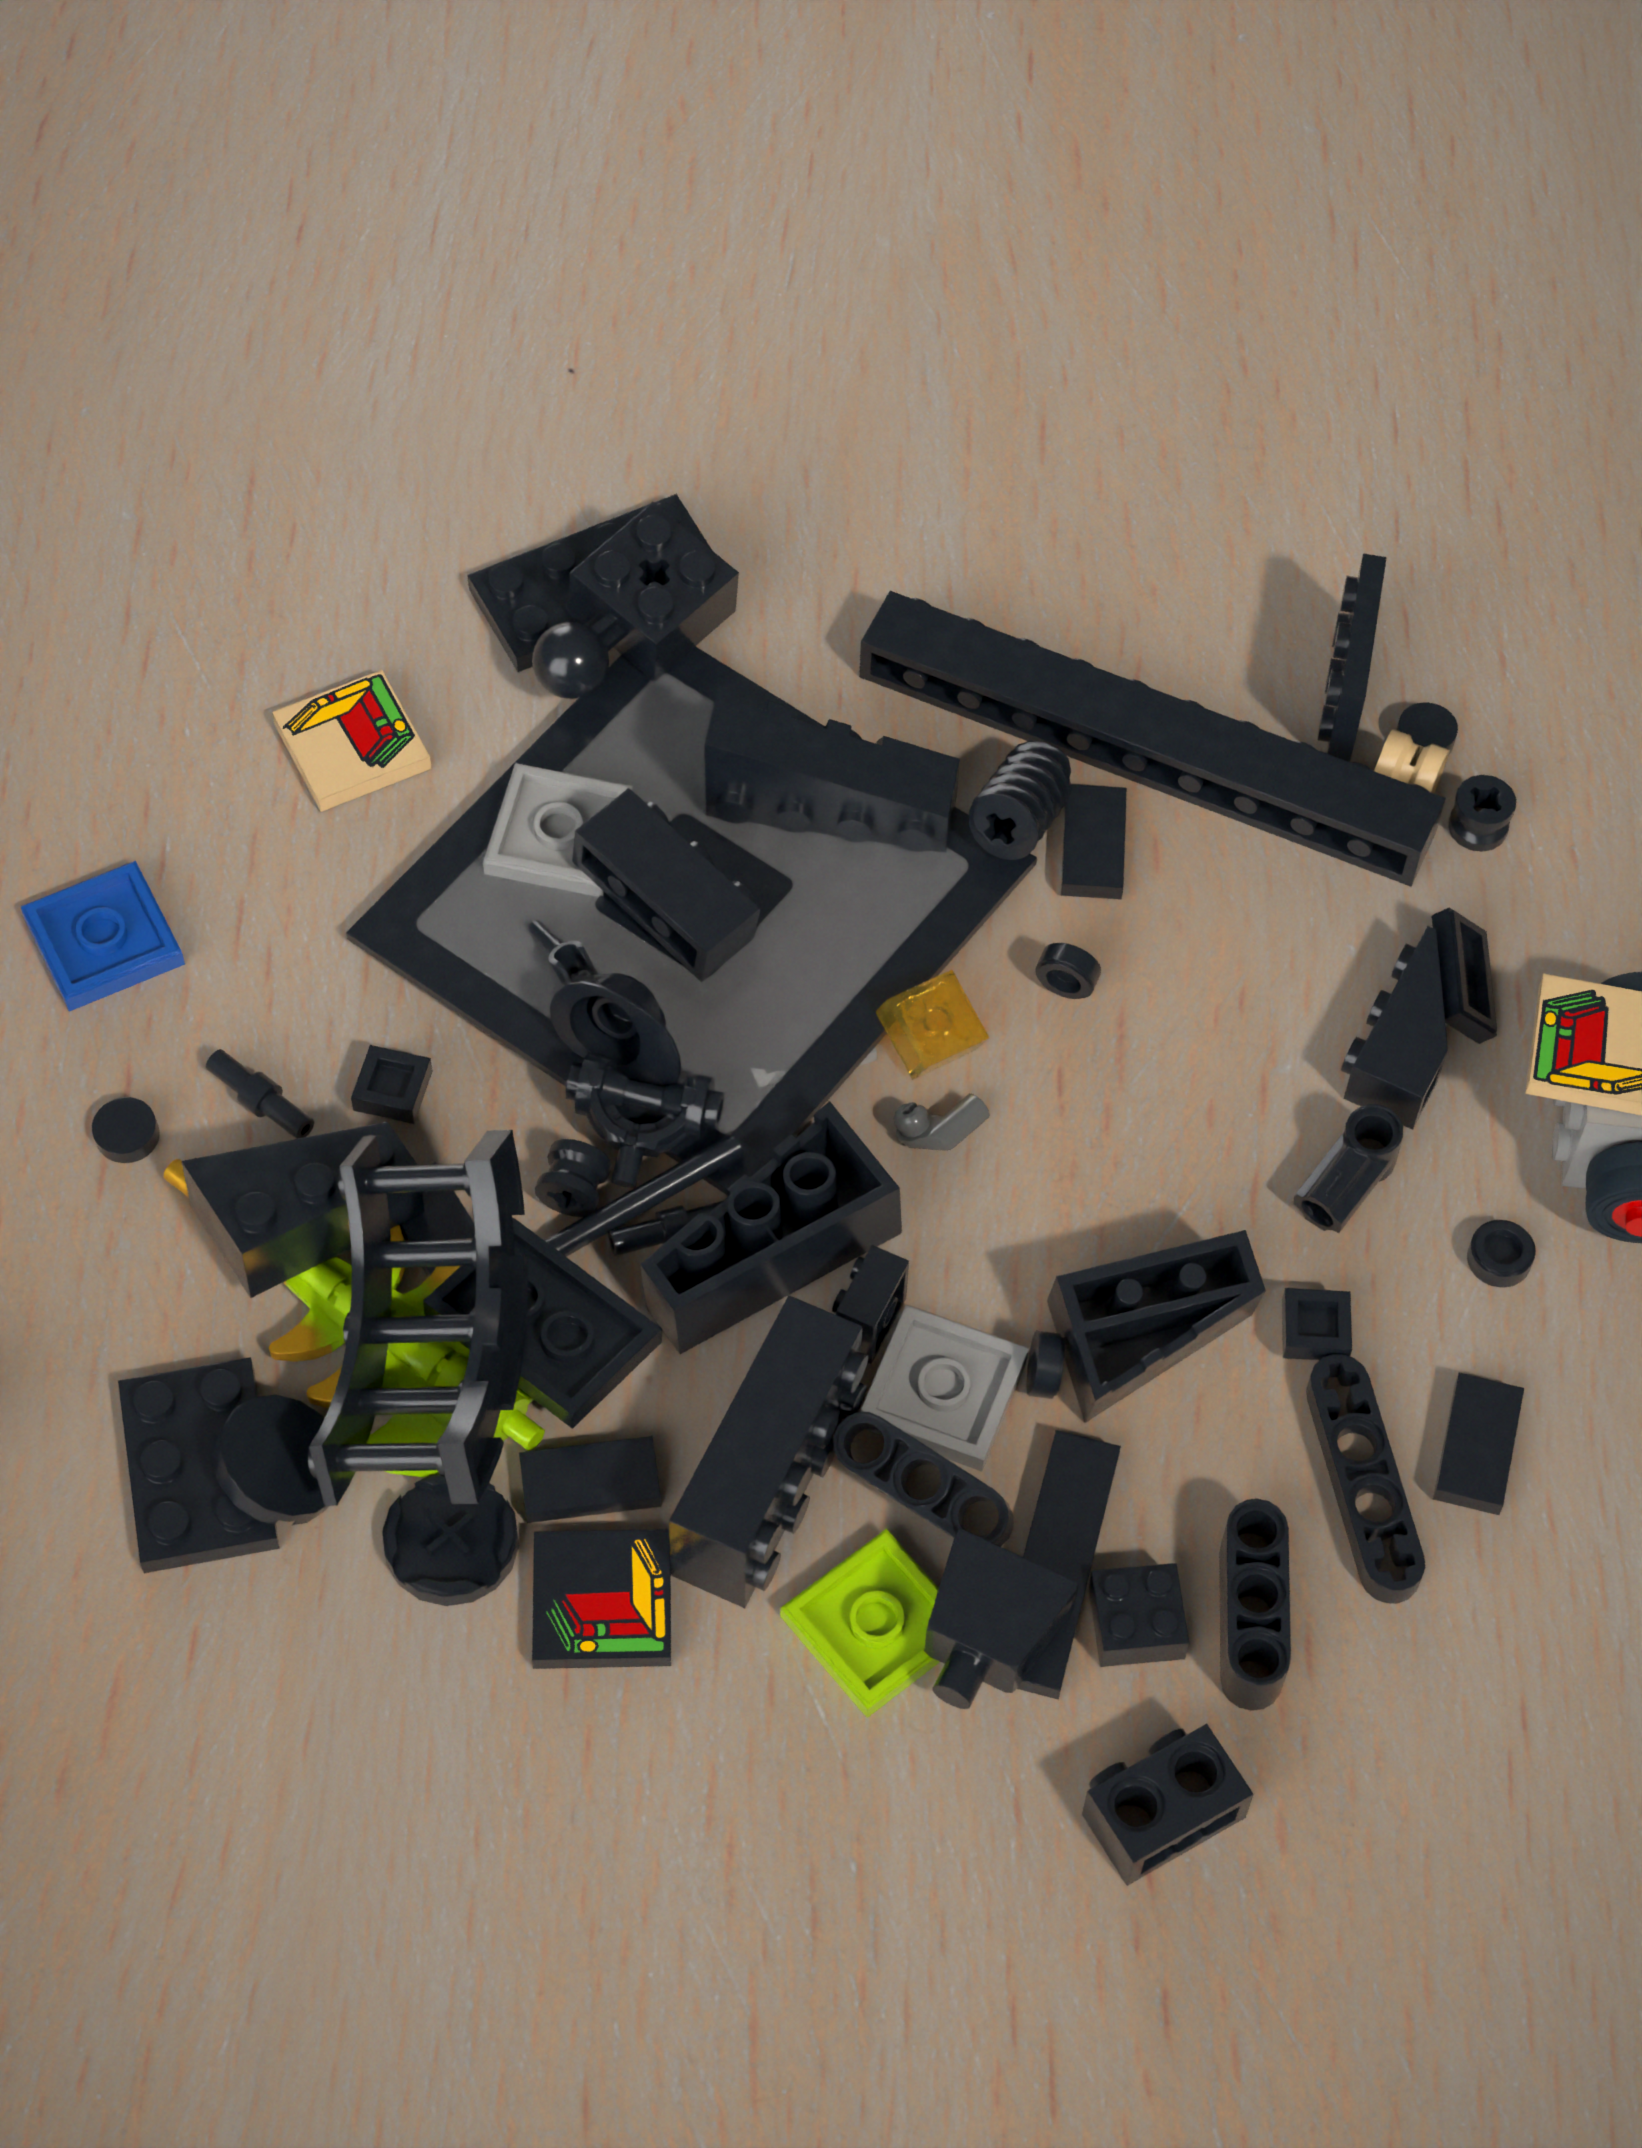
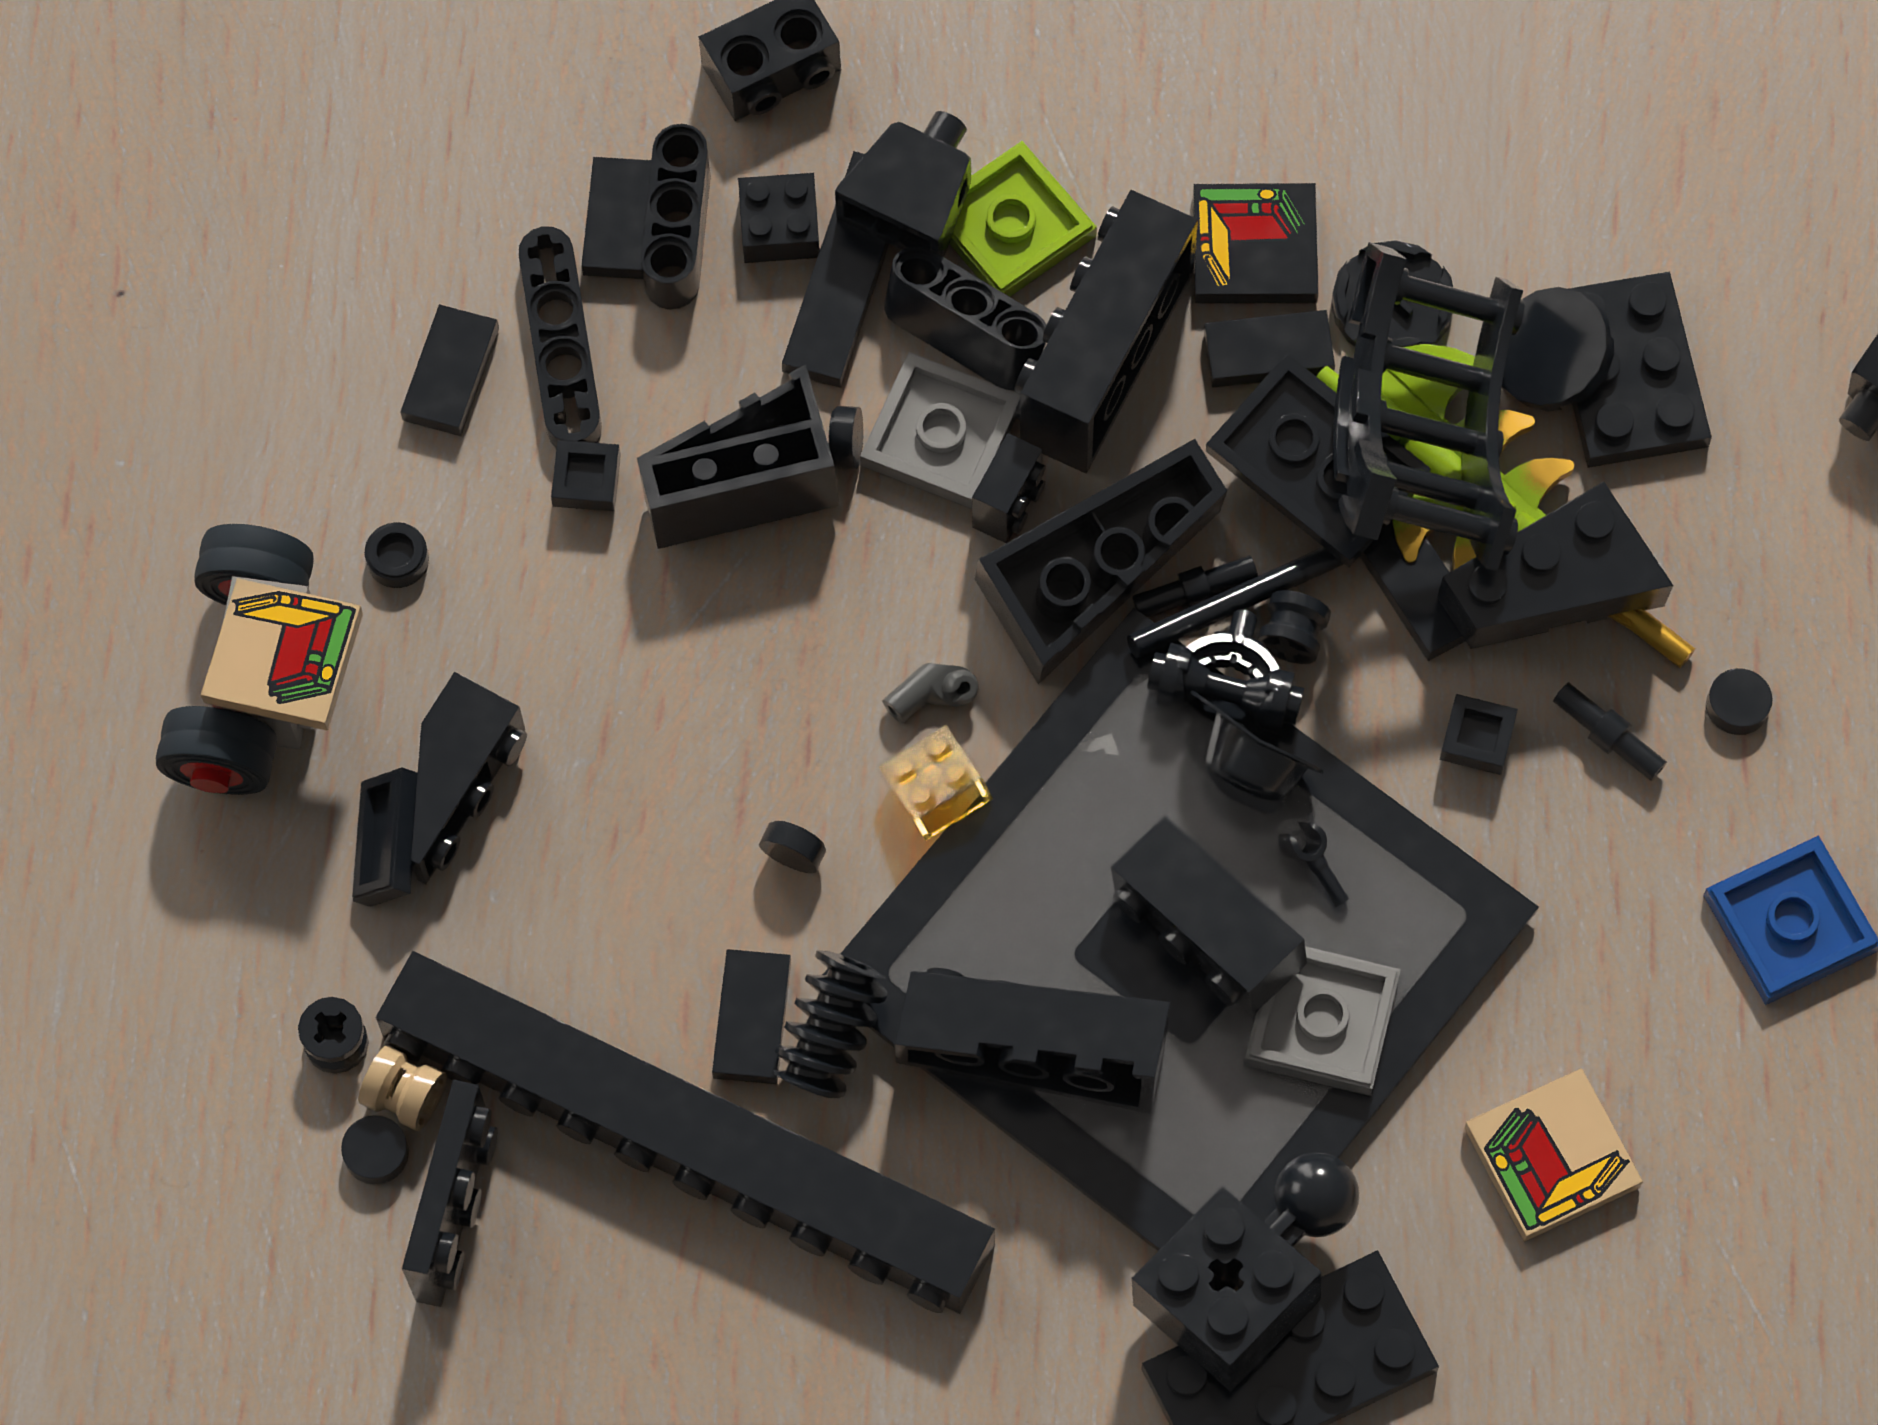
camera: 175 degrees left, 10 degrees up
(1322, 1618) = (616, 218): none -> black tile
(1351, 1170) = (532, 623): black piece -> none

